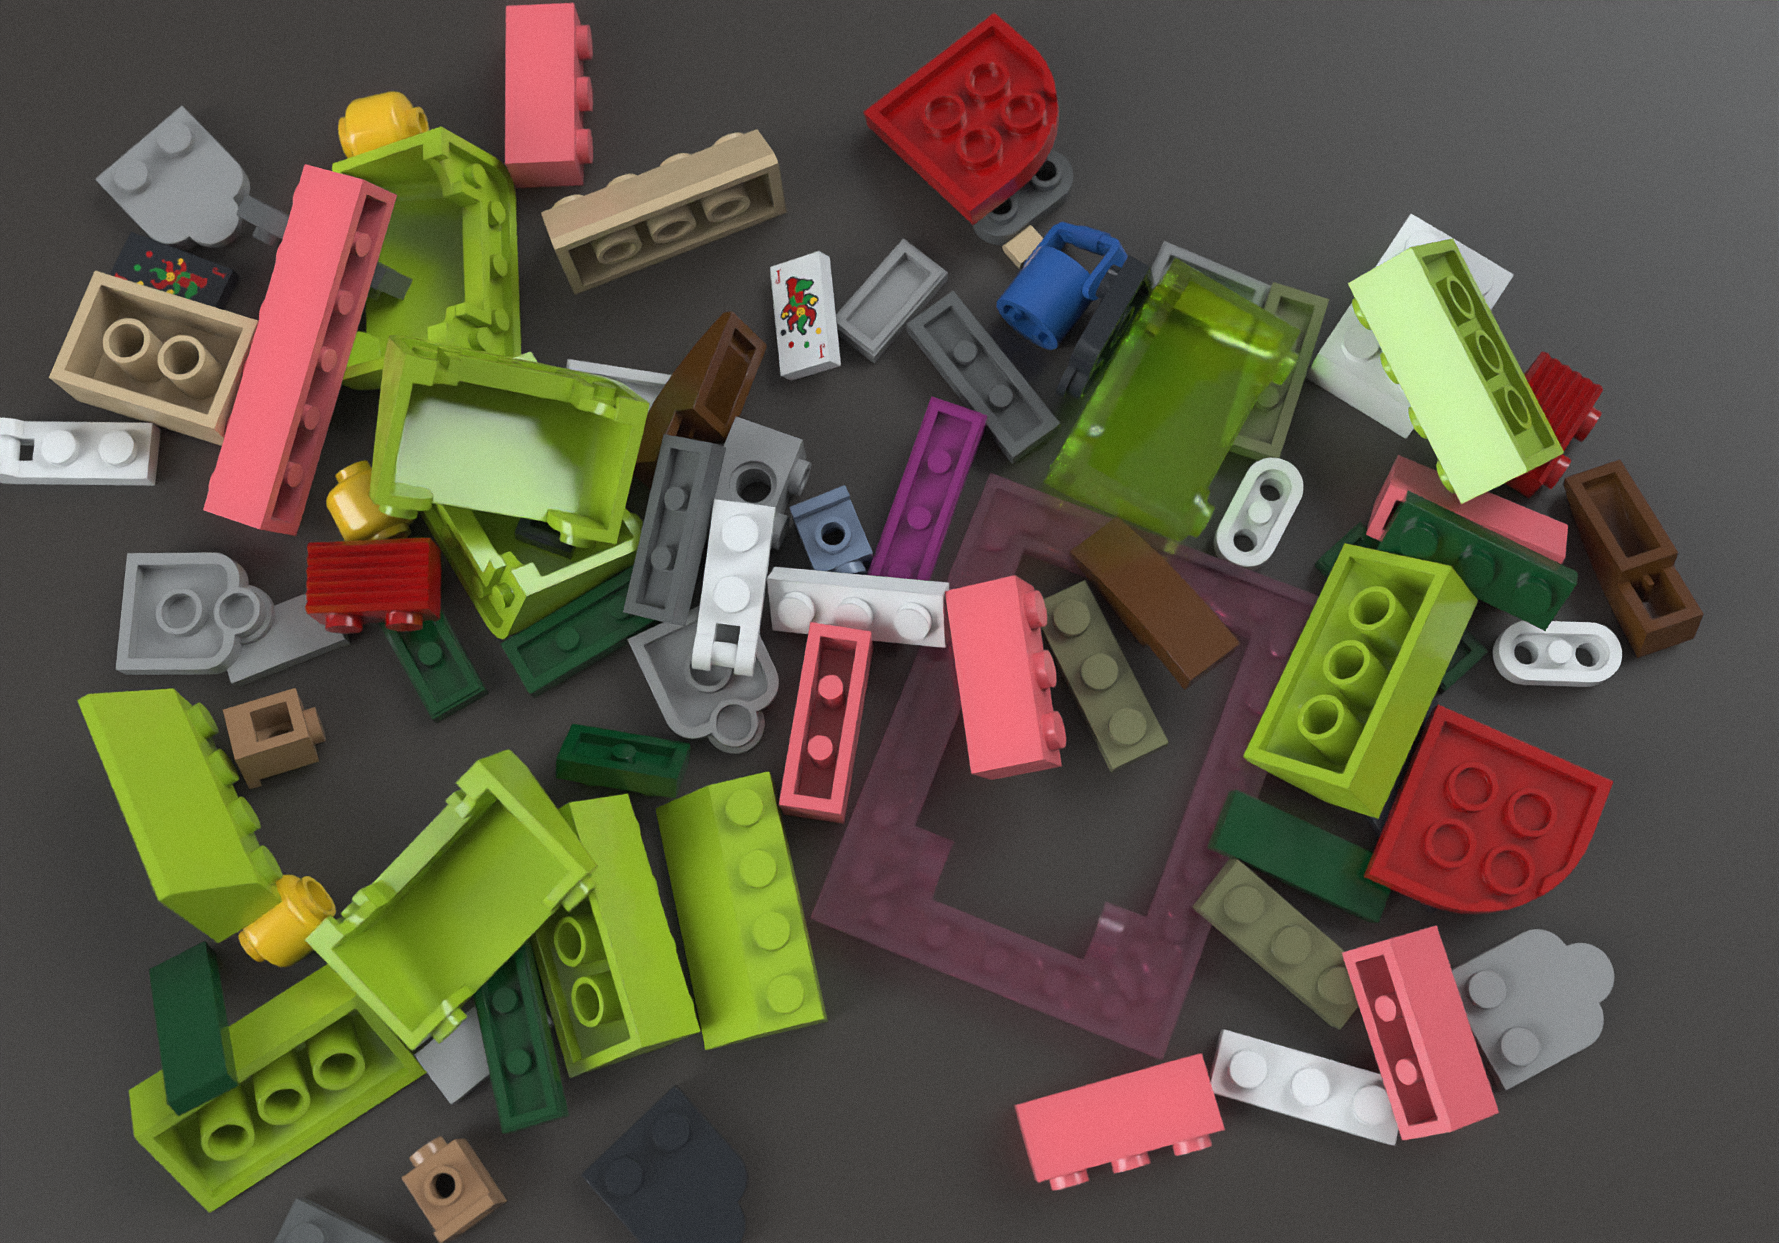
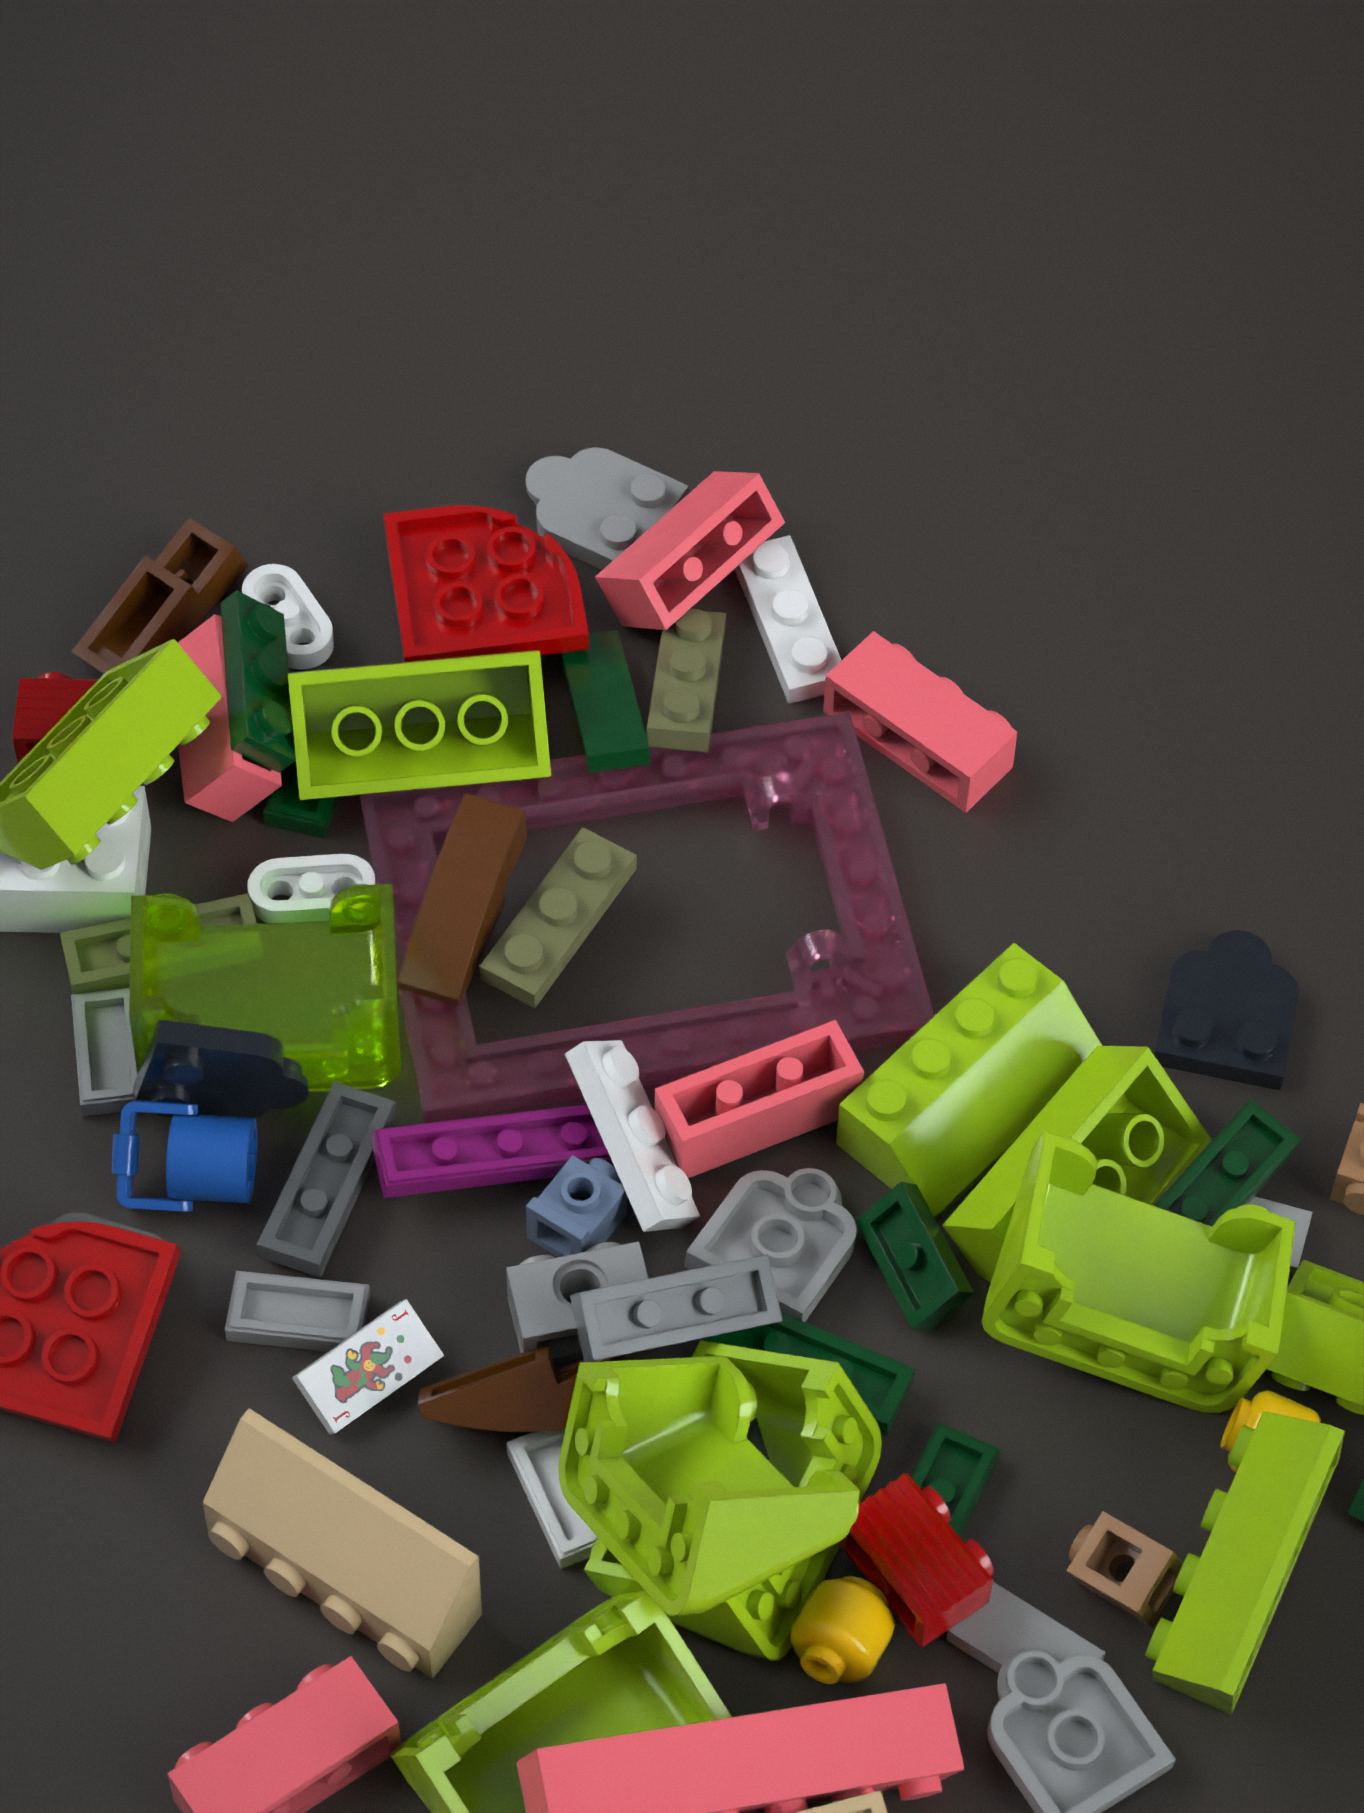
camera: 130 degrees left, 20 degrees down
(734, 585) = (692, 1234): white plate -> none
(1005, 678) = (618, 964): coral brick -> none
(1022, 246) = (163, 1224): tan piece -> none

